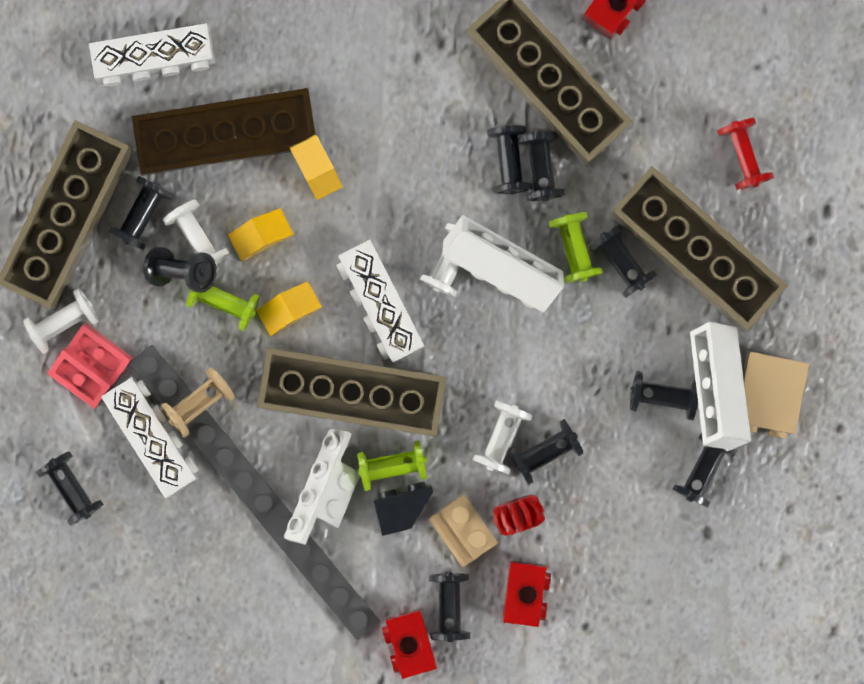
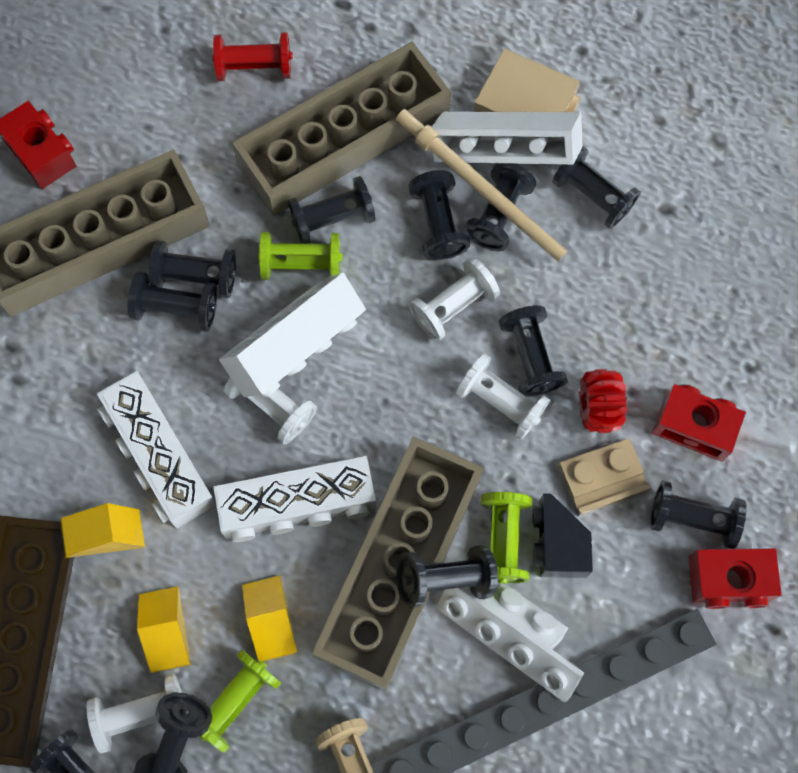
camera: 75 degrees left, 15 degrees down
(337, 410) = (476, 572): none -> black hose
(389, 185) = (156, 451): none -> white brick
(573, 379) = (455, 298): none -> white hose
(642, 348) = (433, 190): none -> black hose
(698, 323) = (429, 140): none -> tan bar

